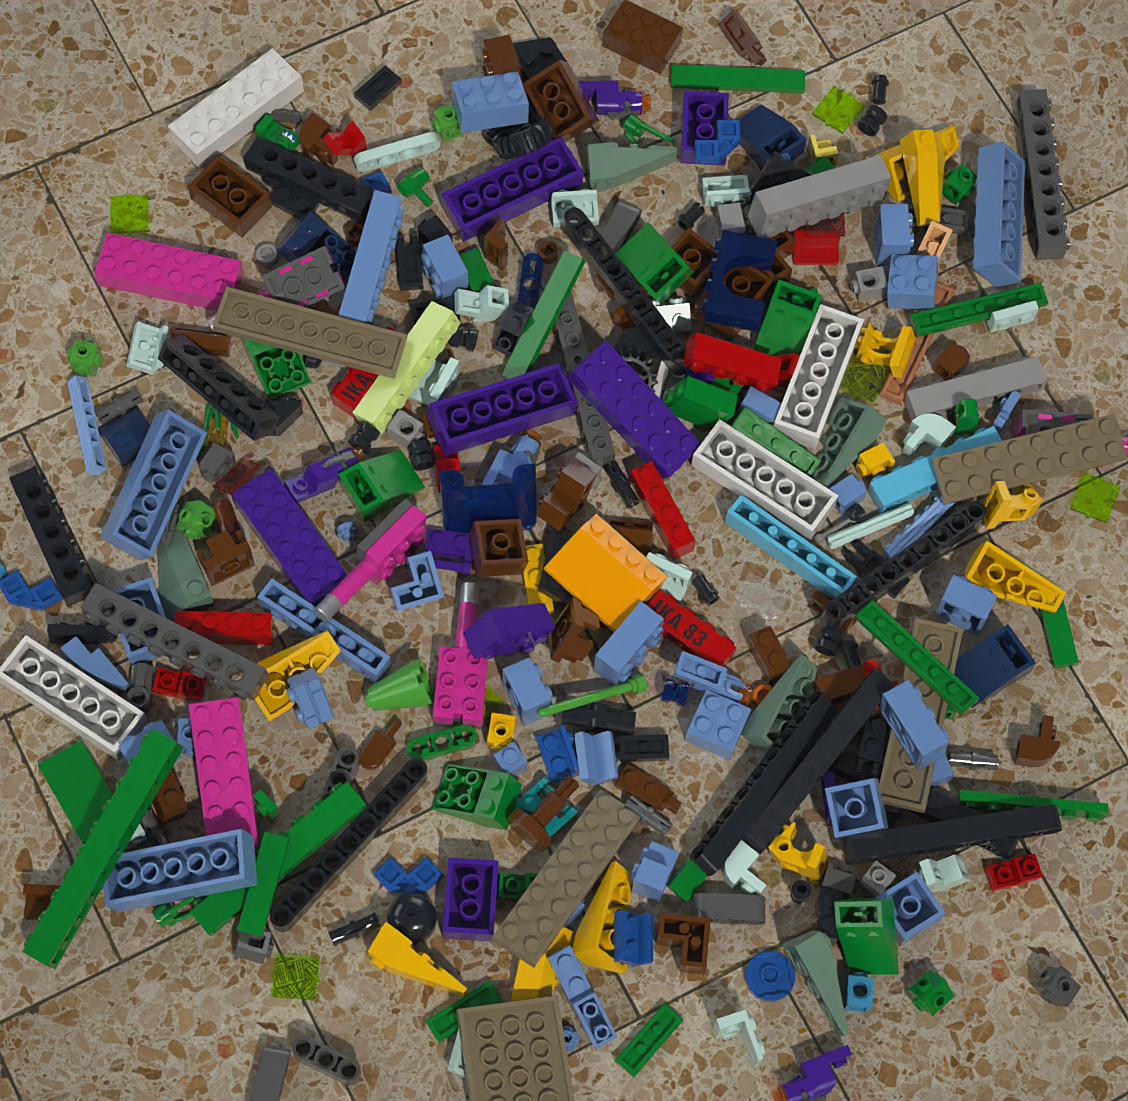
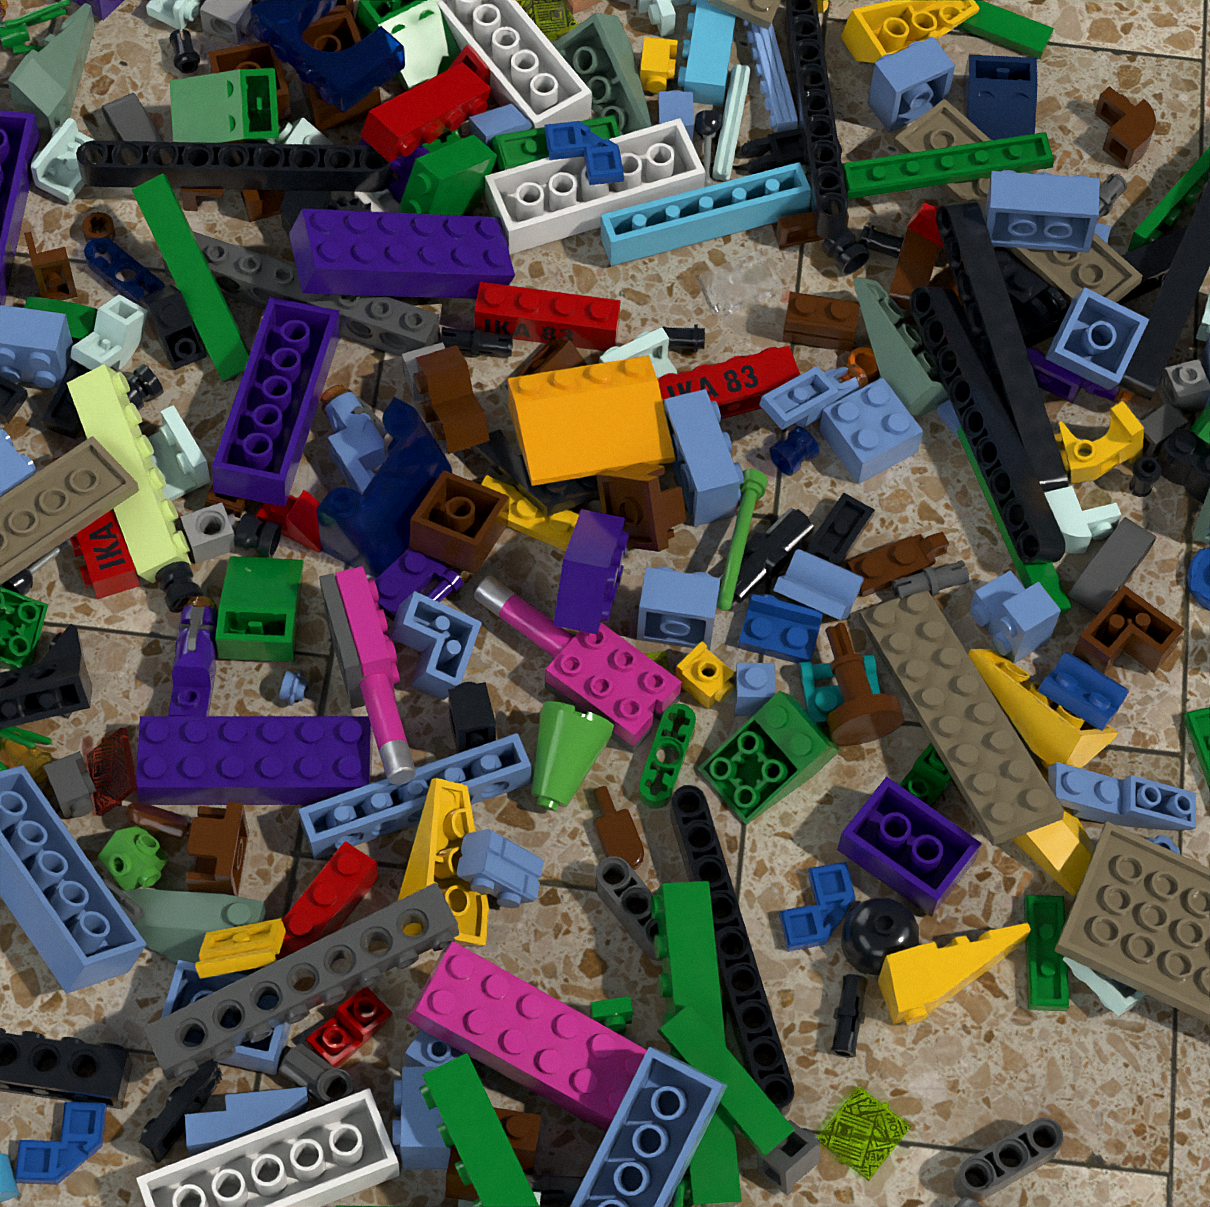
camera: 55 degrees left, 5 degrees down
(174, 601) = (240, 948): none -> yellow plate
(385, 629) = (471, 716): none -> black brick
(778, 451) = (576, 140): none -> blue tile

